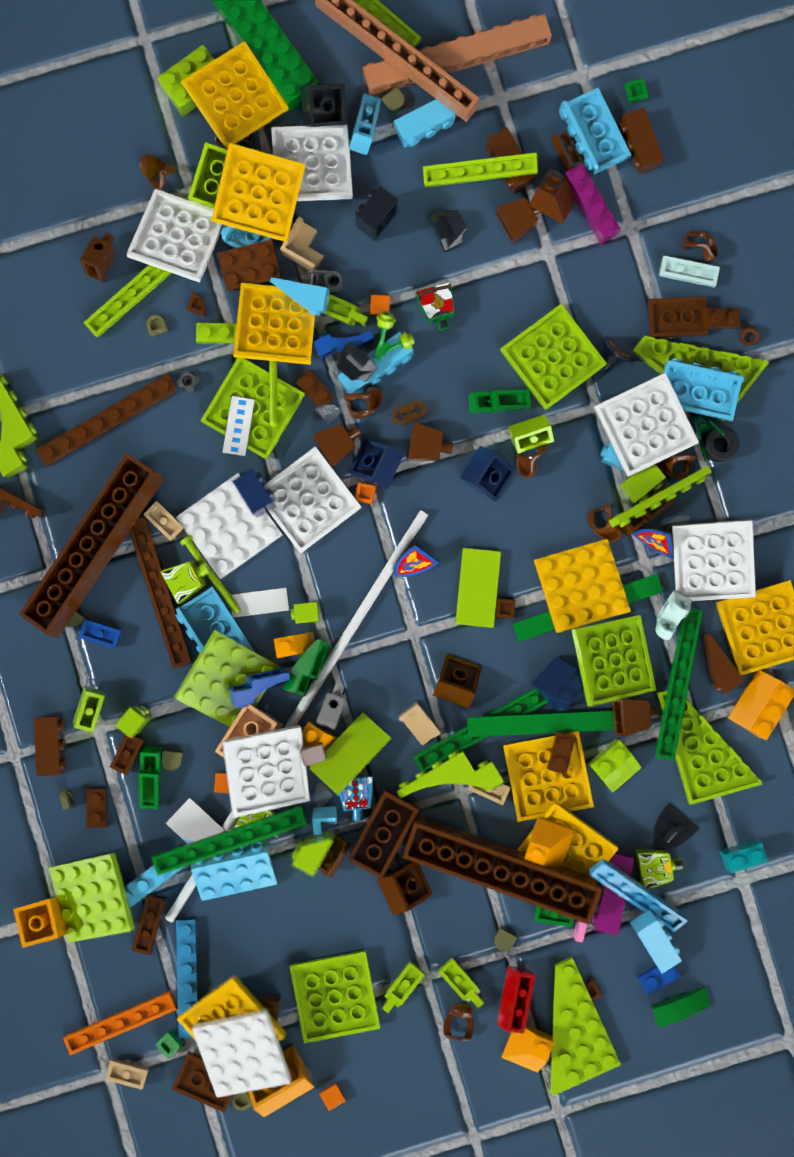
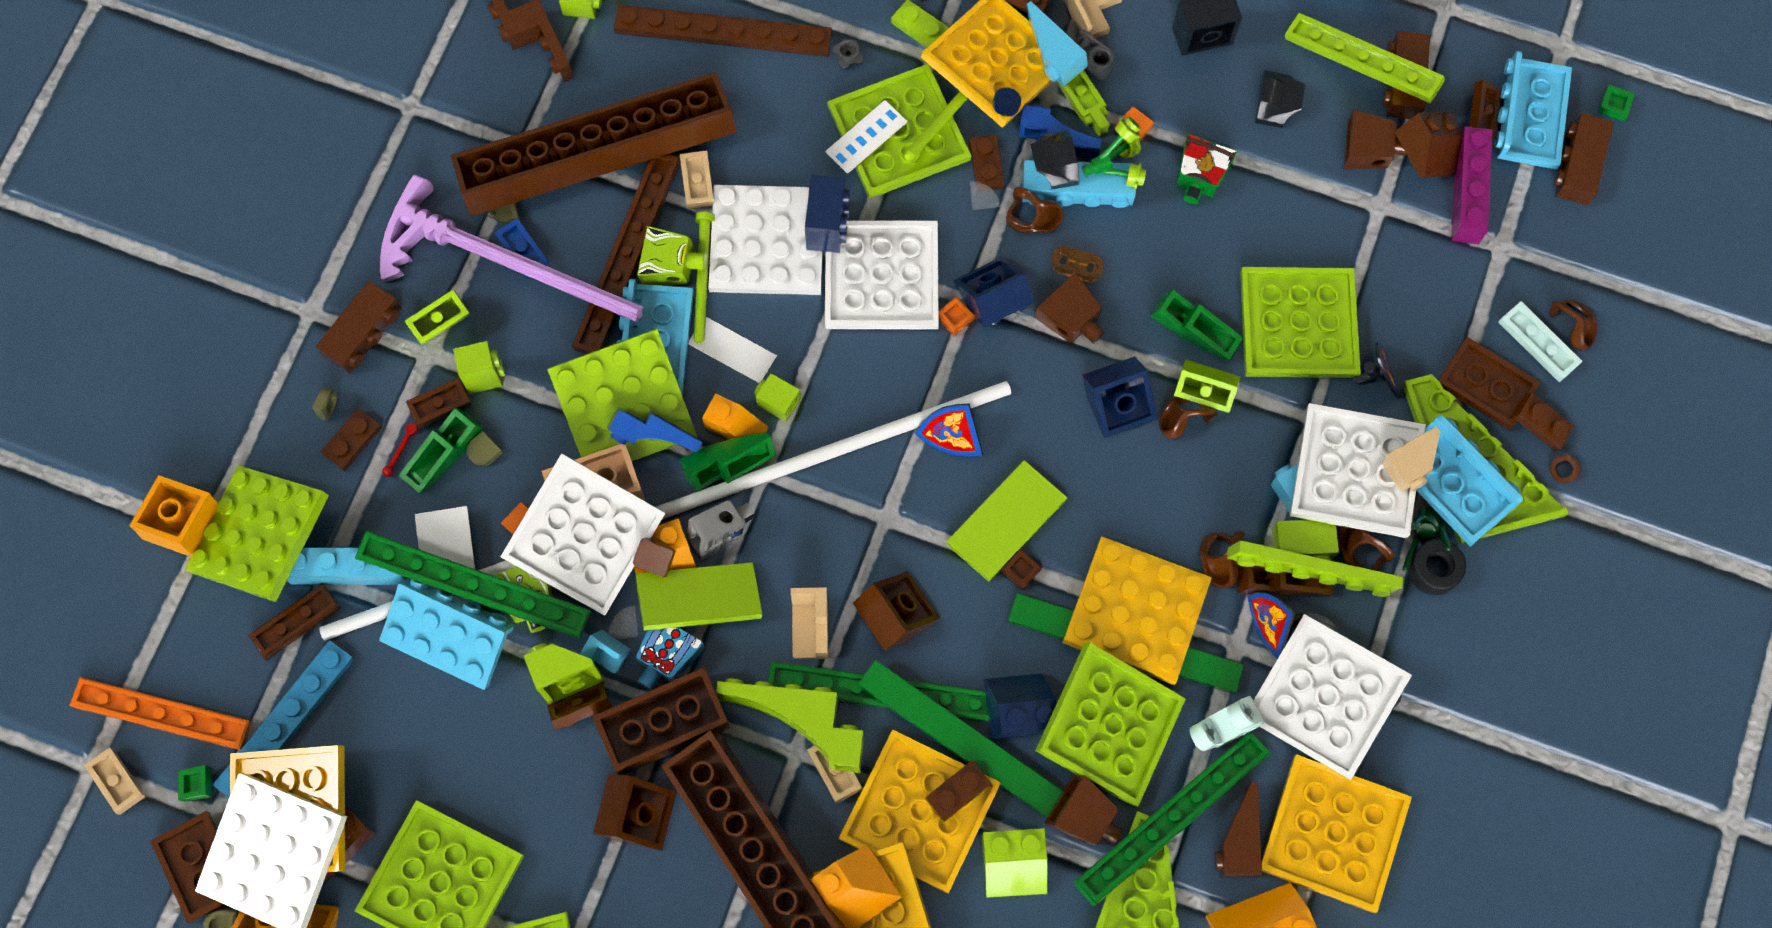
camera: 35 degrees right, 15 degrees down
(51, 657) = (444, 231): none -> lavender piece
(130, 809) = (411, 430): none -> red hinge
(302, 349) = (1006, 101): none -> clear blue tile
(337, 443) = (965, 235): reddish brown torso -> none
(675, 400) = (1413, 461): none -> tan slope

